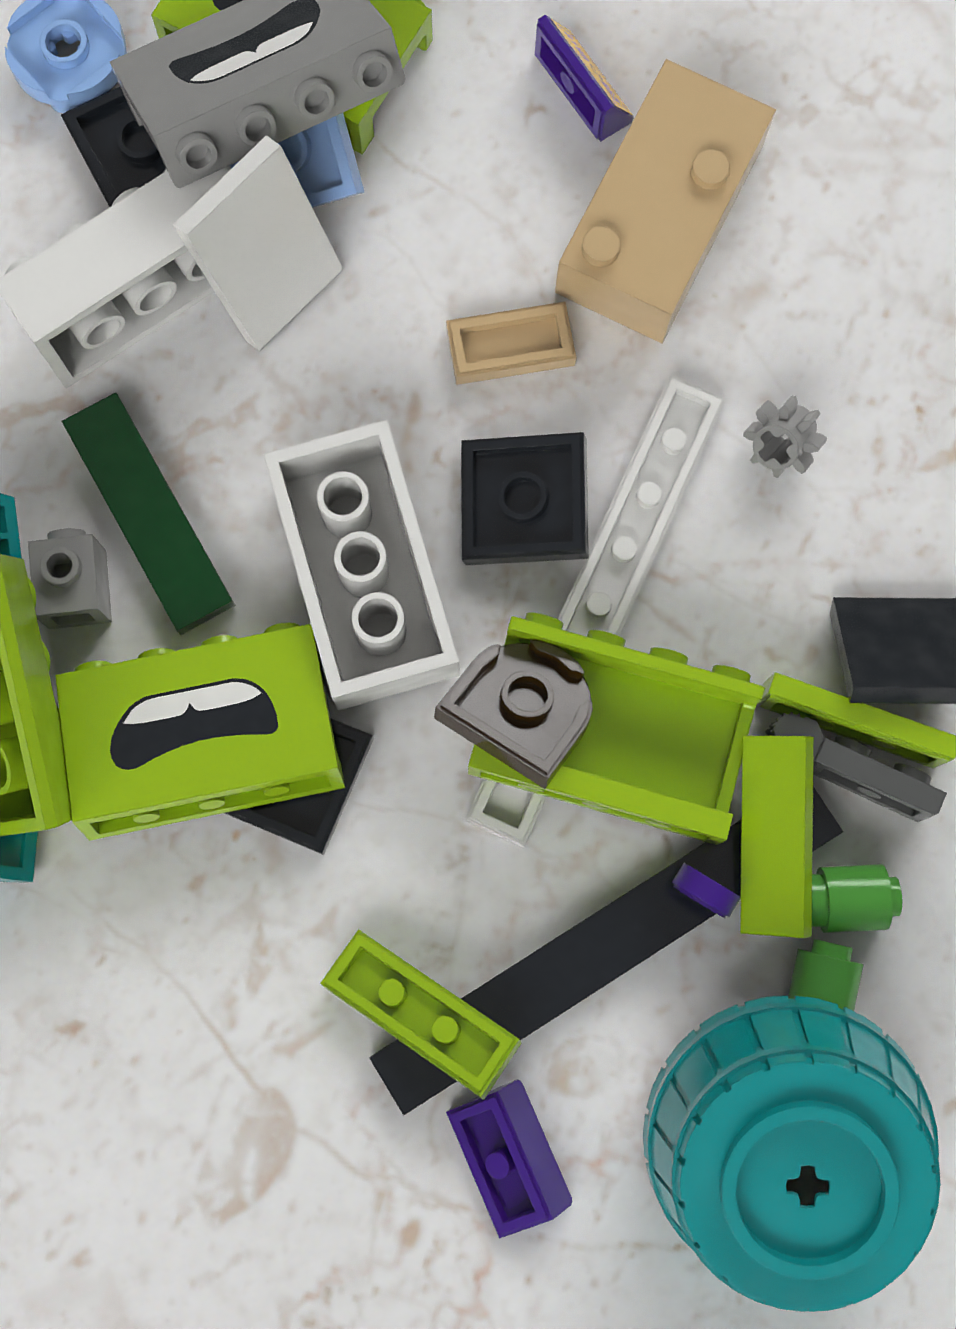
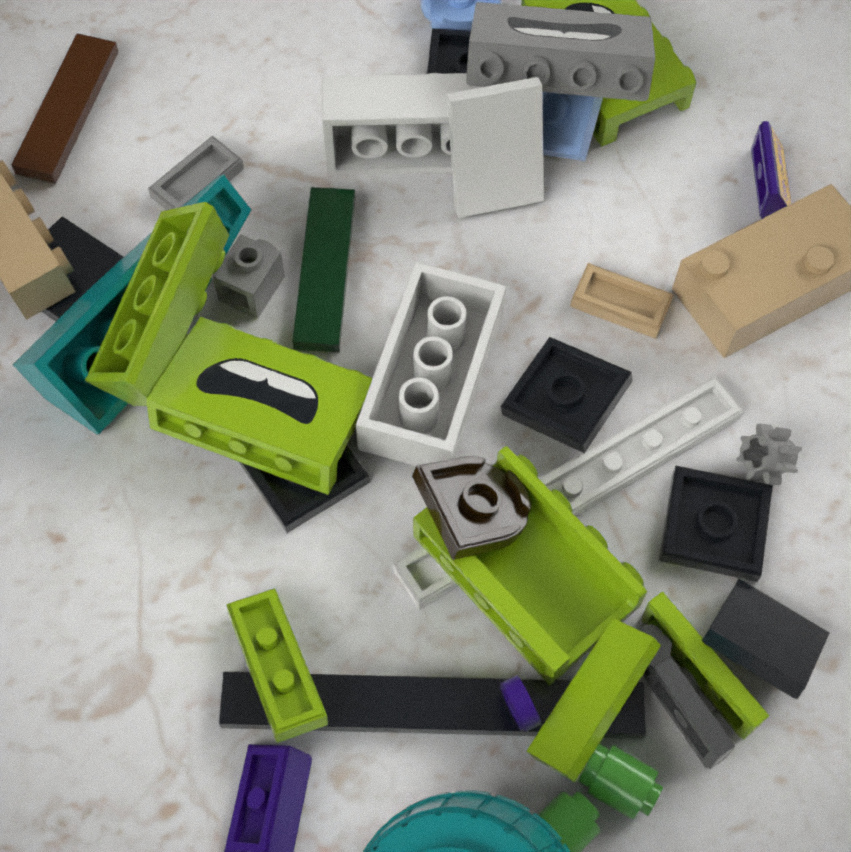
camera: 35 degrees right, 15 degrees down
(771, 548) = (716, 523): none -> black tile

